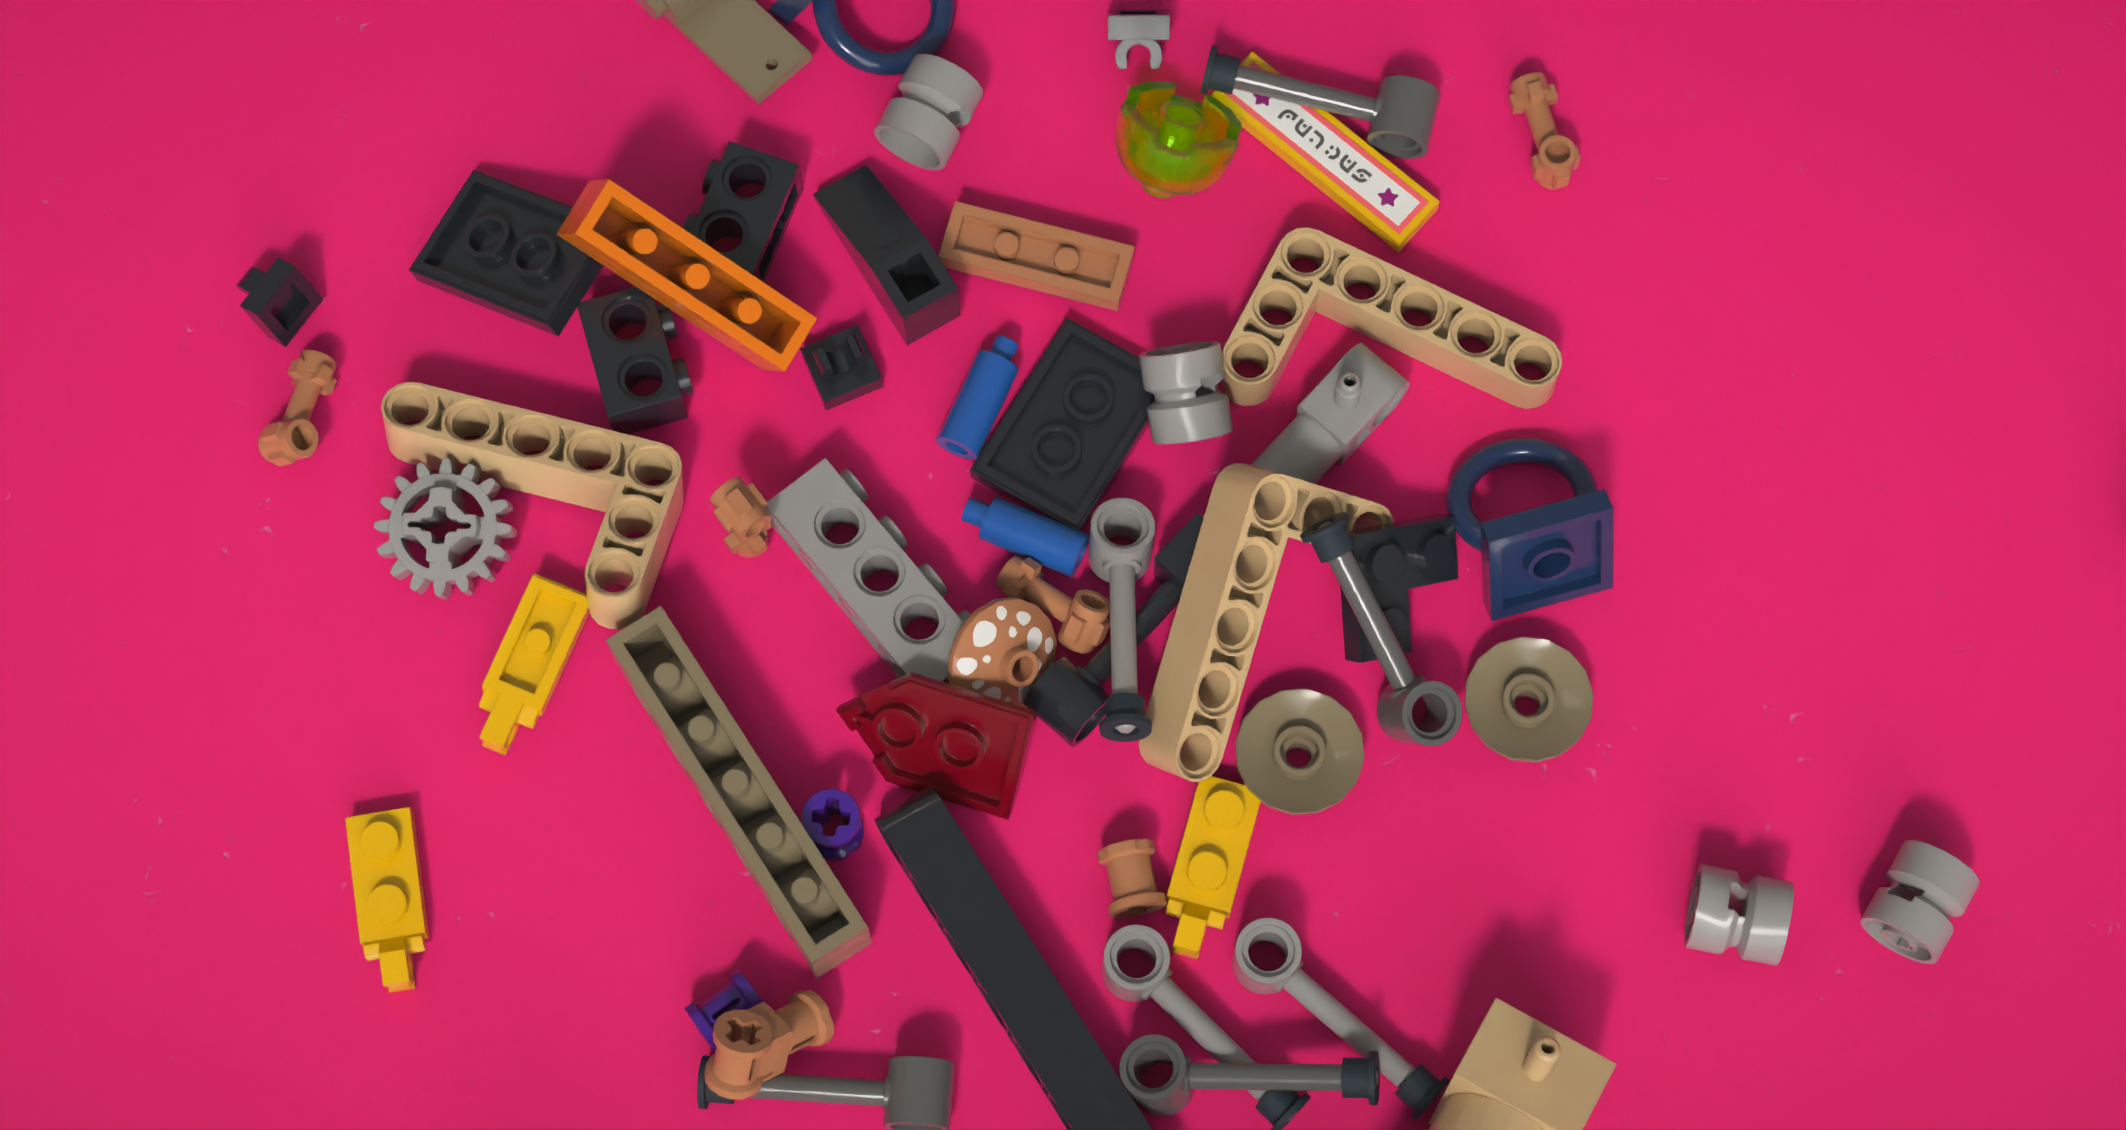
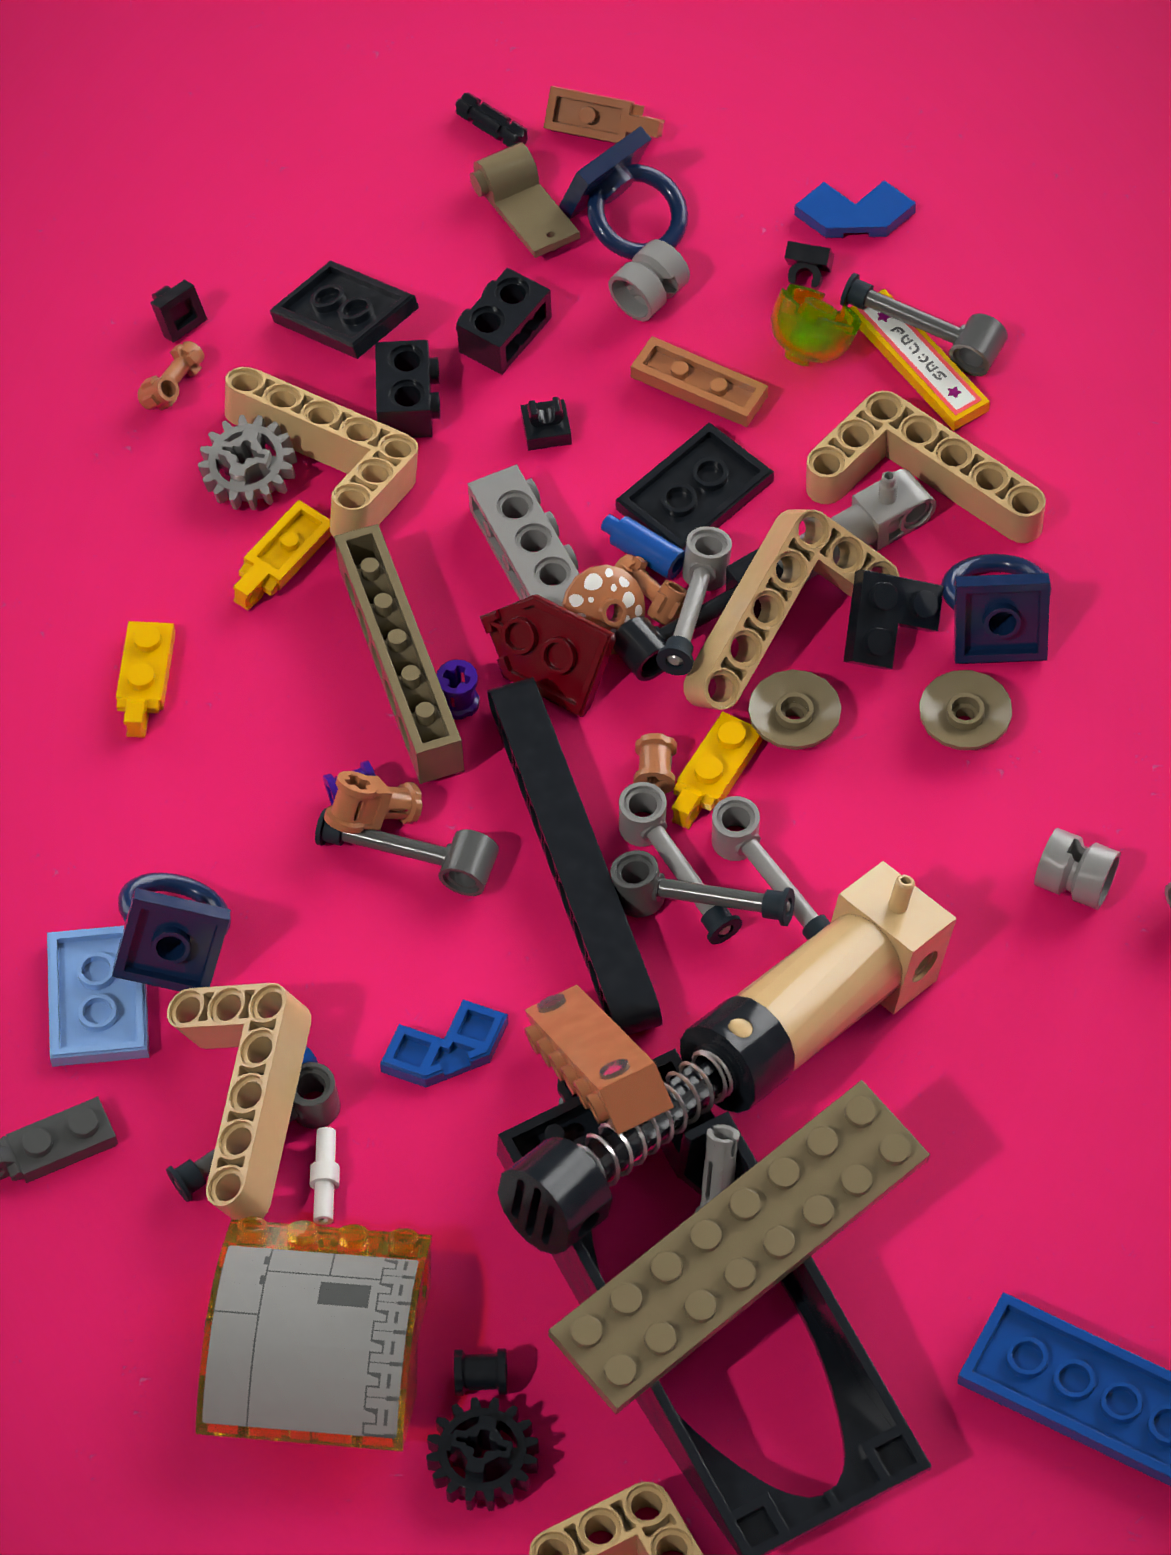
camera: 15 degrees right, 15 degrees down
(686, 275) = (453, 332): orange brick -> none
(743, 516) = (451, 479): nougat bar -> none
(890, 254) = (599, 362): black slope -> none
(979, 400) = (634, 459): blue cylinder -> none
(1185, 392) = (776, 474): light grey wheel -> none
(1394, 708) = (848, 569): dark grey piece -> none
(1556, 153) = (1079, 386): nougat bar -> none

